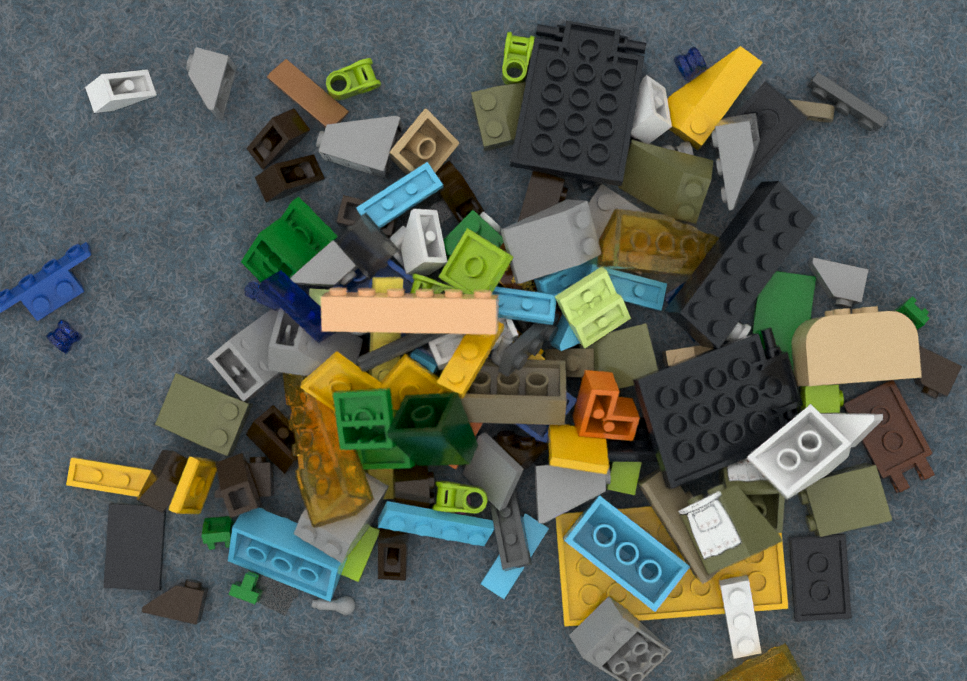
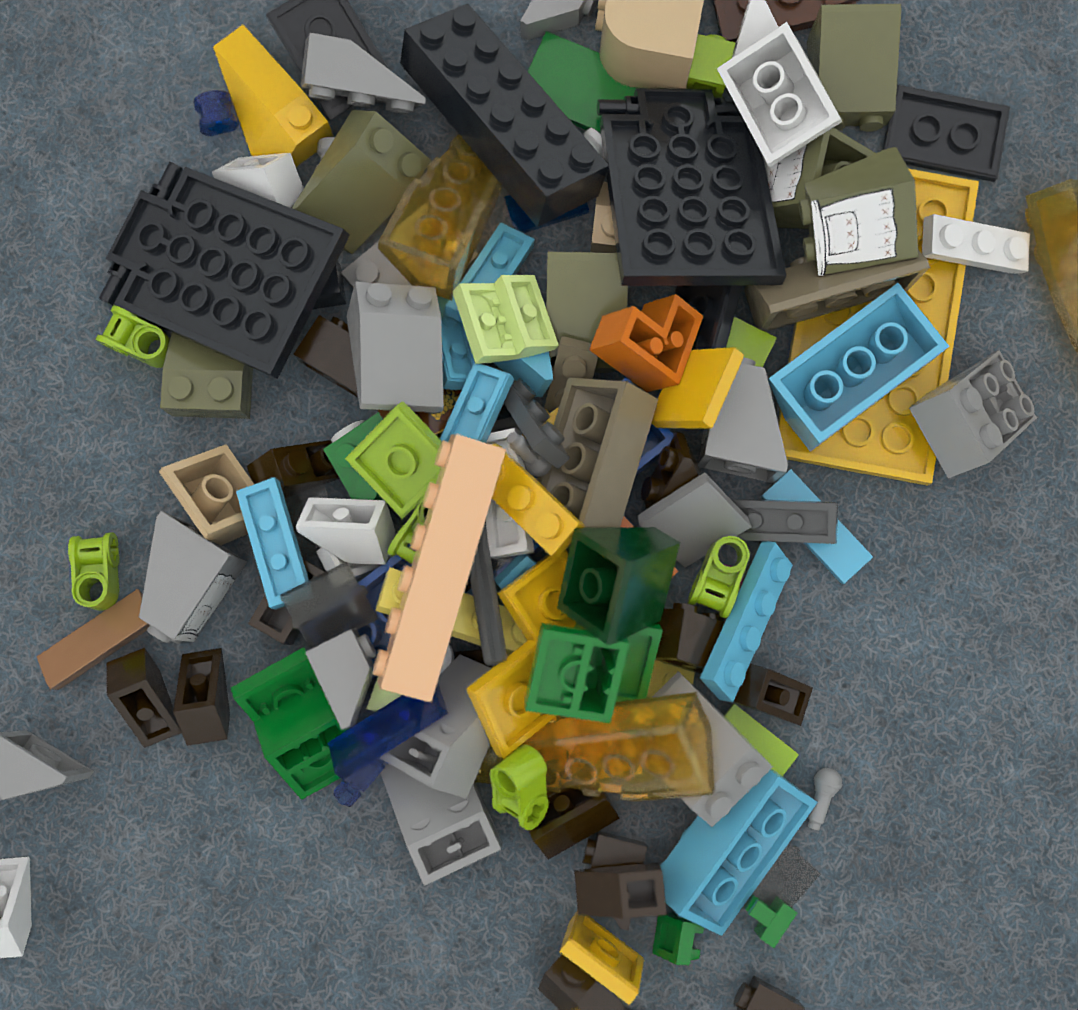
camera: 75 degrees left, 5 degrees down
(203, 415) = (504, 913): olive slope -> none
(285, 403) = (521, 786): none -> lime piece

